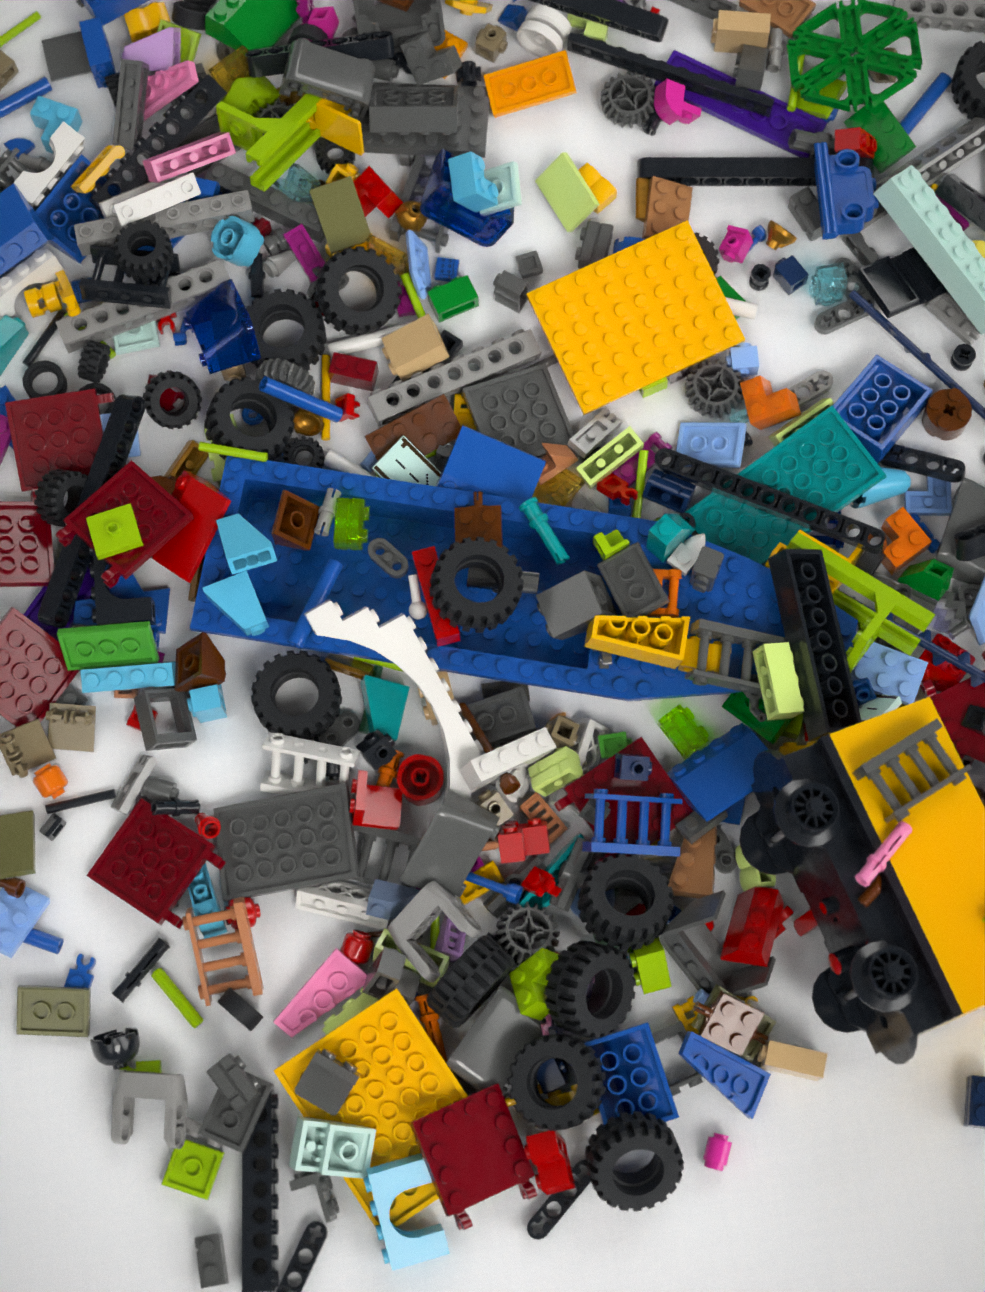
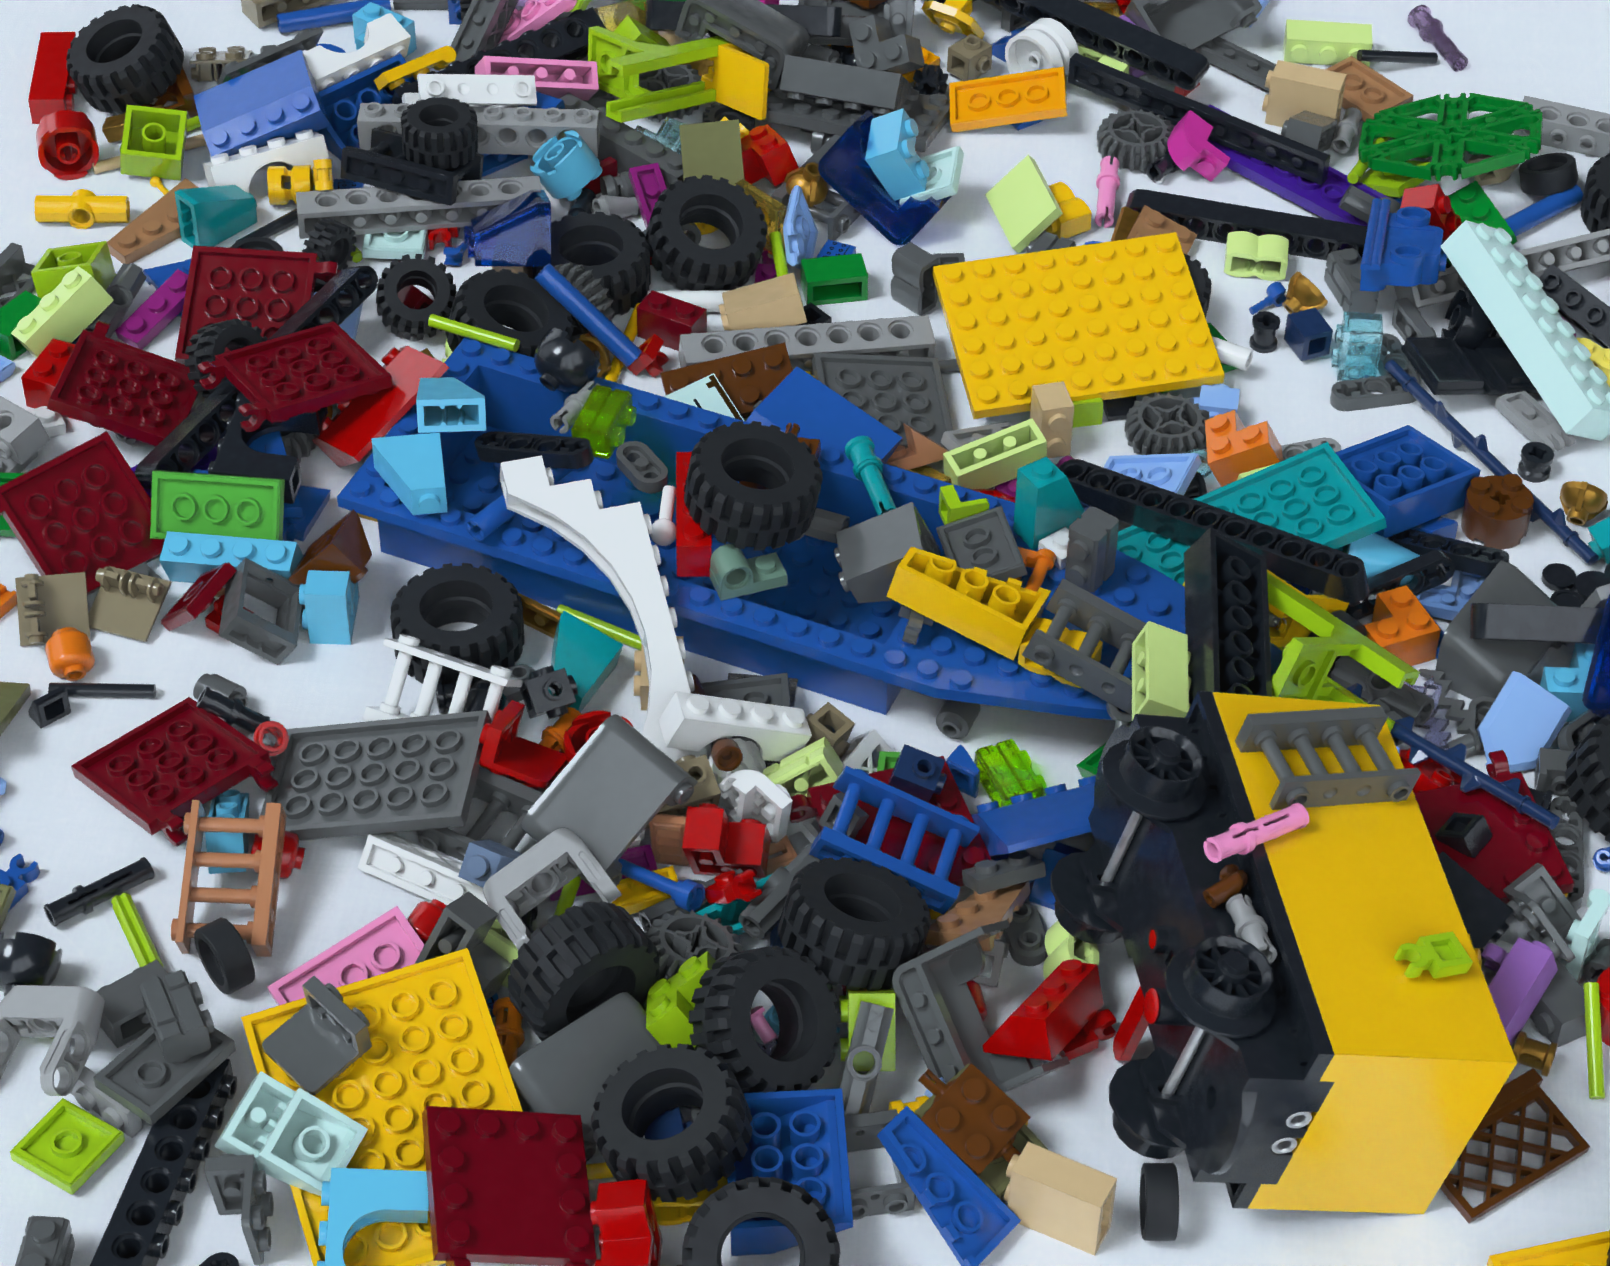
camera: 10 degrees right, 30 degrees down
(114, 531) = (278, 370): lime plate -> none
(119, 716) = (198, 596): none -> dark red plate
(134, 784) = (167, 695): light grey hinge -> none
(196, 1052) = (123, 1009): none -> dark grey brick
(295, 522) = (524, 401): reddish brown slope -> none
(308, 479) = (564, 363): none -> black cylinder
(314, 564) = (555, 450): none -> black beam
(479, 643) = (738, 576): none -> sand green plate
(529, 809) = (757, 798): none -> white slope
(619, 150) = (1107, 183): none -> bright pink pin
(637, 408) = (1053, 415): none -> tan piece
(652, 733) = (964, 771): none -> blue slope
(654, 983) = (870, 1036): none -> dark grey piece
(735, 244) = (1240, 293): dark pink brick -> none
(738, 200) = (1256, 255): none -> yellowish green brick
(850, 1050) = (1159, 1201): none -> black tyre
(892, 239) = (1468, 321): none -> black cylinder
(892, 922) = (1250, 925): none -> light grey pin
(897, 500) = (1391, 579): none -> black beam
(910, 437) = (1439, 526): none -> blue slope
(928, 578) = (1438, 668): green slope -> none
(933, 77) = (1548, 174): none -> black tyre

